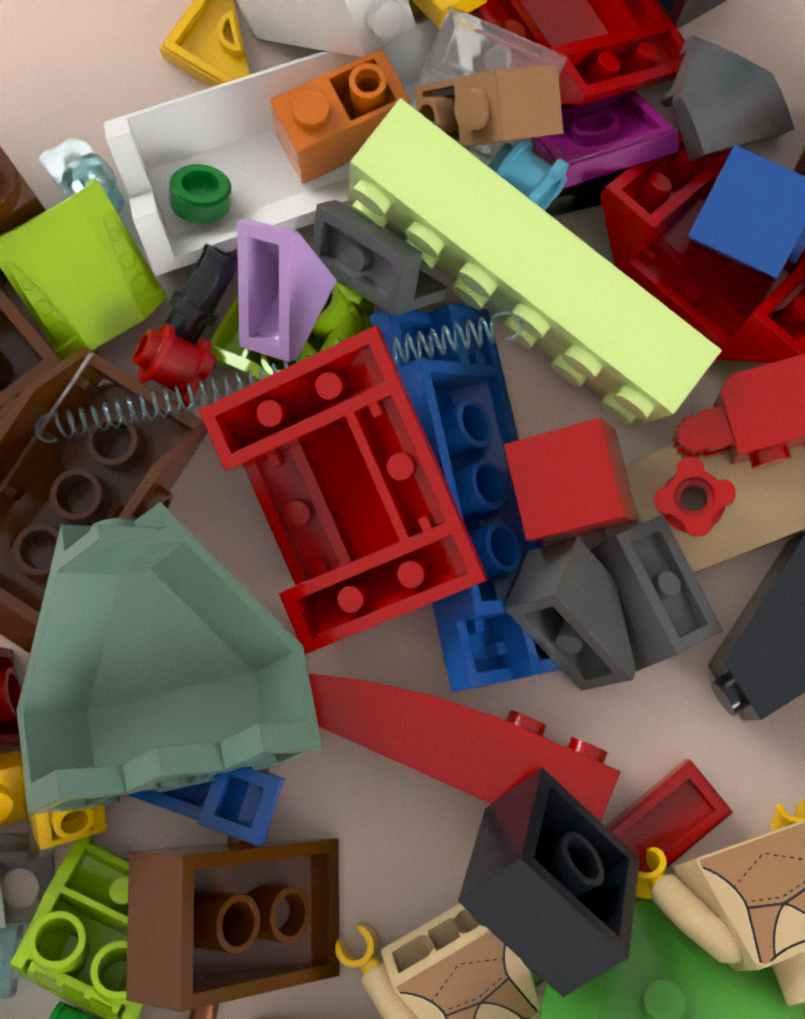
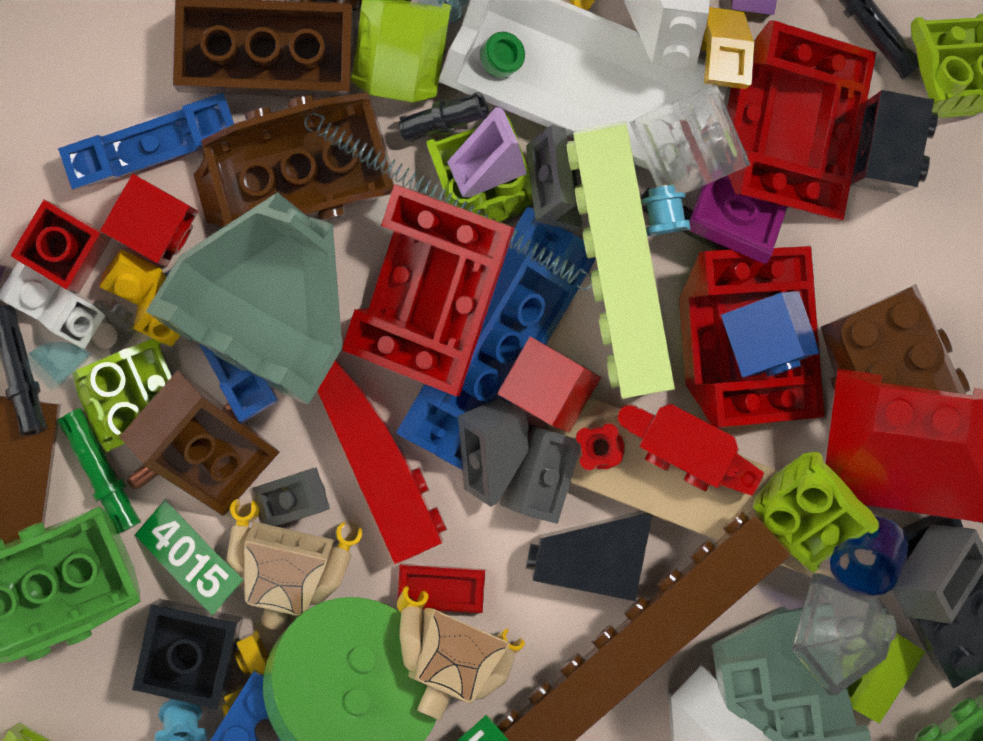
camera: 40 degrees right, 10 degrees up
(173, 361) = (406, 141): red brick -> none
(335, 114) = (612, 80): orange slope -> none
(400, 879) = (291, 497): none -> dark grey slope
(495, 105) = (676, 161): medium nougat slope -> none
(552, 884) = (360, 560): black brick -> none
(724, 100) = (827, 254): flat silver slope -> none

